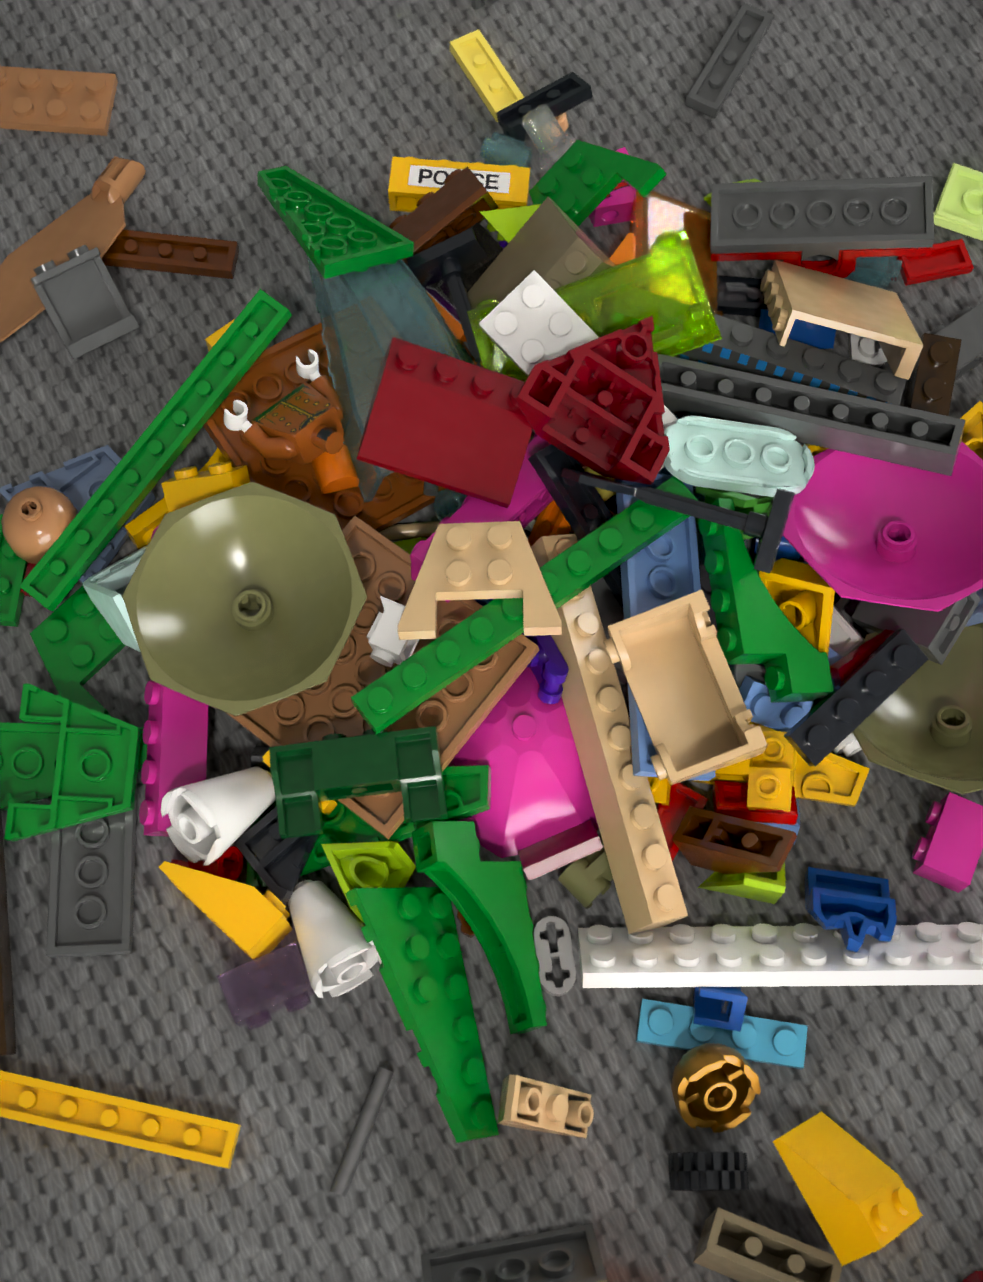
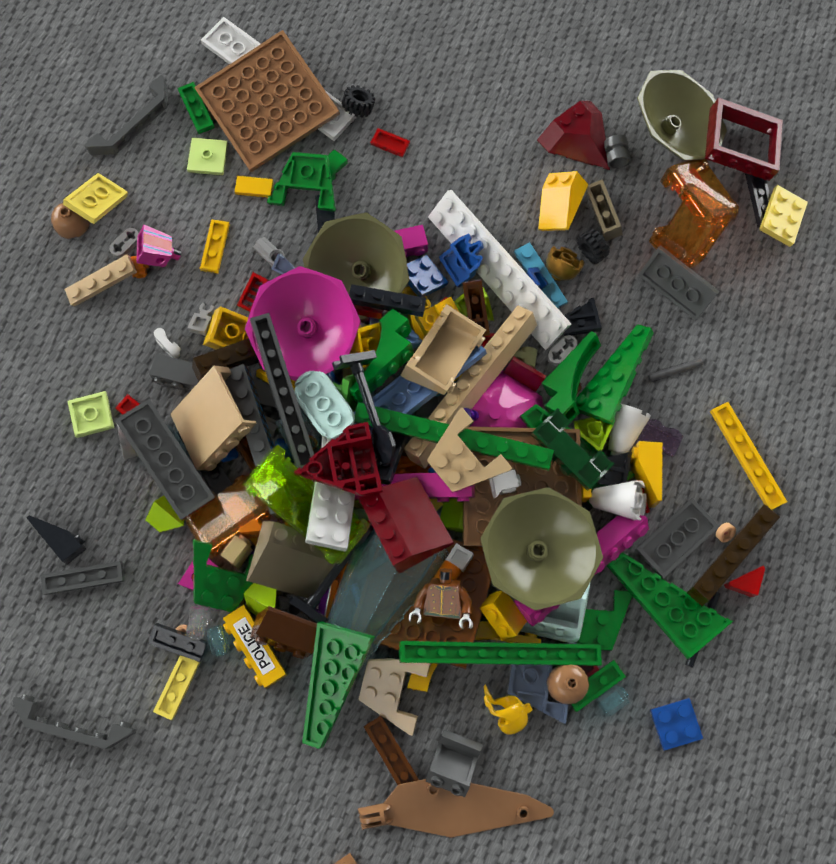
camera: 130 degrees left, 5 degrees up
(29, 959) = (725, 532): none -> light nougat tile
(69, 423) = (513, 717): none -> yellow hair
(92, 770) = (642, 568): green wing -> none
(239, 289) = (384, 686): none -> tan wing
(344, 500) = (460, 557): none -> white plate
(543, 1107) = (619, 314): tan slope -> none
(583, 1037) = (583, 319): none -> black wing
(607, 226) = (237, 551): none -> tan brick
(804, 62) = (62, 542): none -> black slope
(867, 821) = (425, 277): none -> plate

